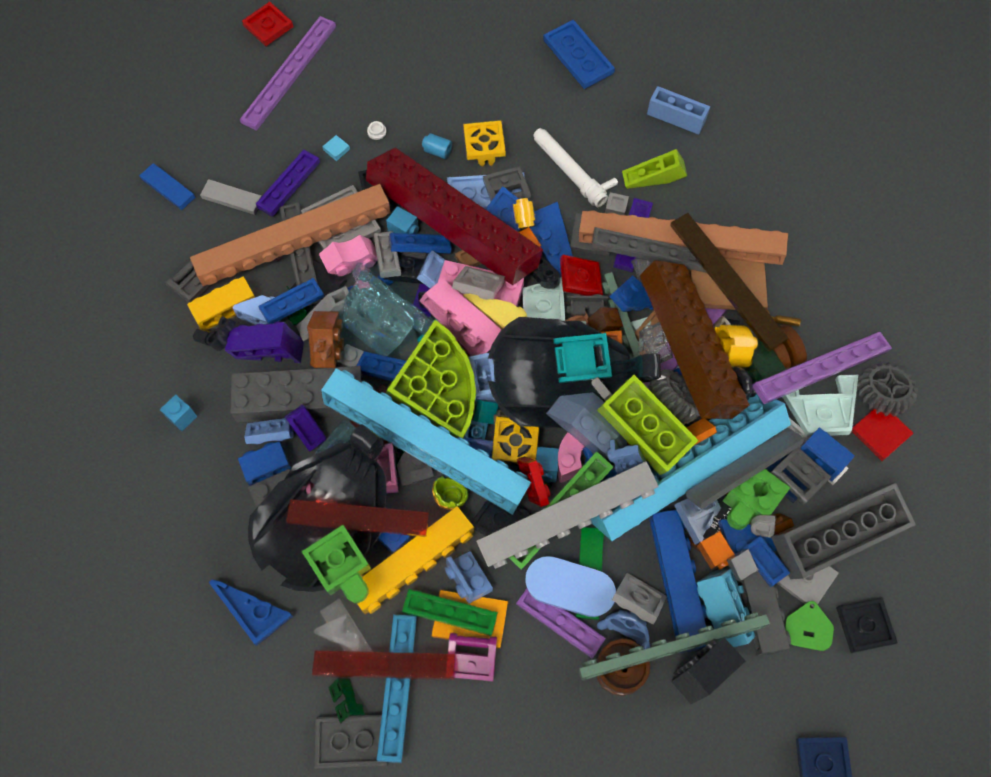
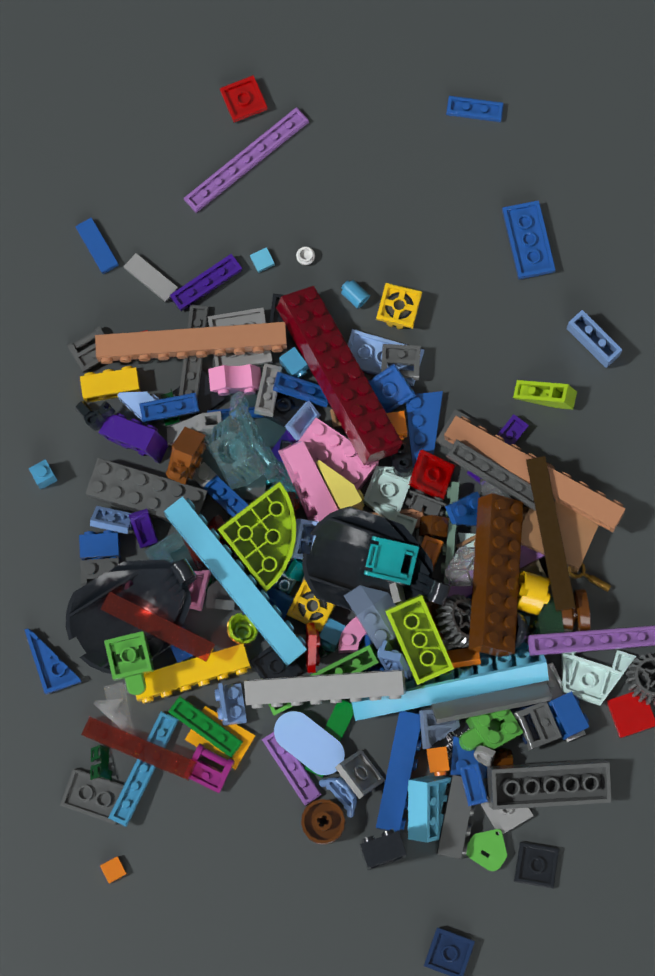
camera: 25 degrees right, 10 degrees up
(478, 282) = (333, 455): light grey plate -> none
(524, 213) = (403, 397): yellow brick -> none
(588, 187) = (477, 388): white cylinder -> none
(616, 204) = (496, 414): light grey plate -> none
(662, 648) = (373, 822): sand green plate -> none
(742, 564) = (451, 780): tile -> none

